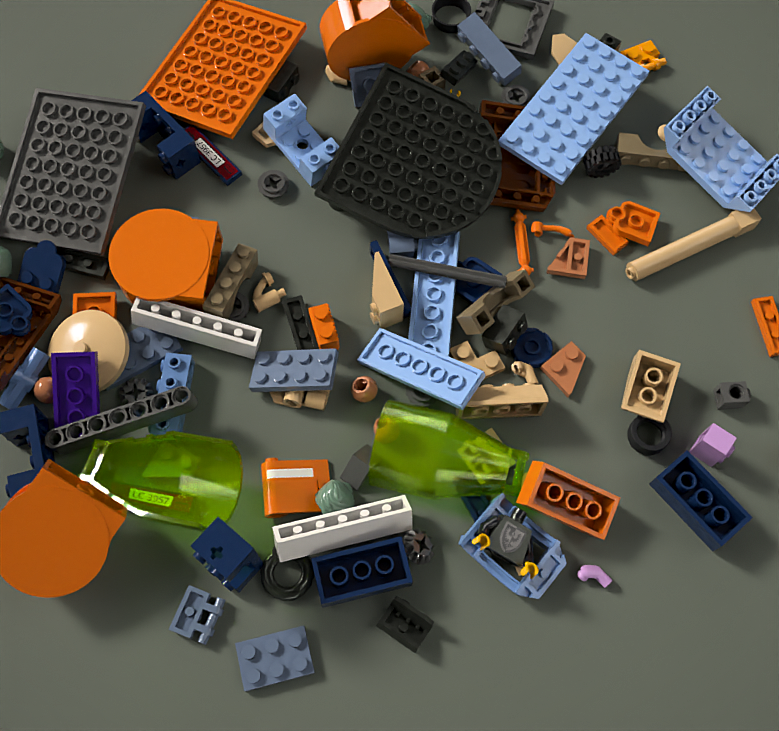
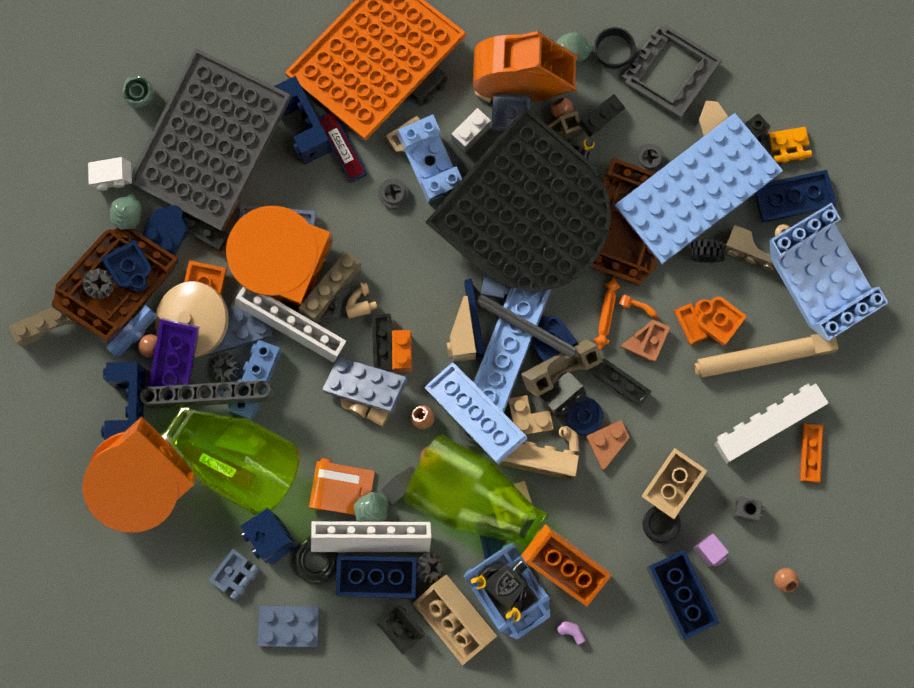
camera: 20 degrees right, 10 degrees up
(335, 109) = (471, 130): none -> white brick
(462, 597) = (454, 619): none -> tan slope
(489, 49) = (637, 100): sand blue brick -> none
(560, 305) = (622, 382): none -> pearl dark grey plate
(662, 99) = (795, 196): none -> dark blue plate
(721, 306) = (770, 423): none -> white brick

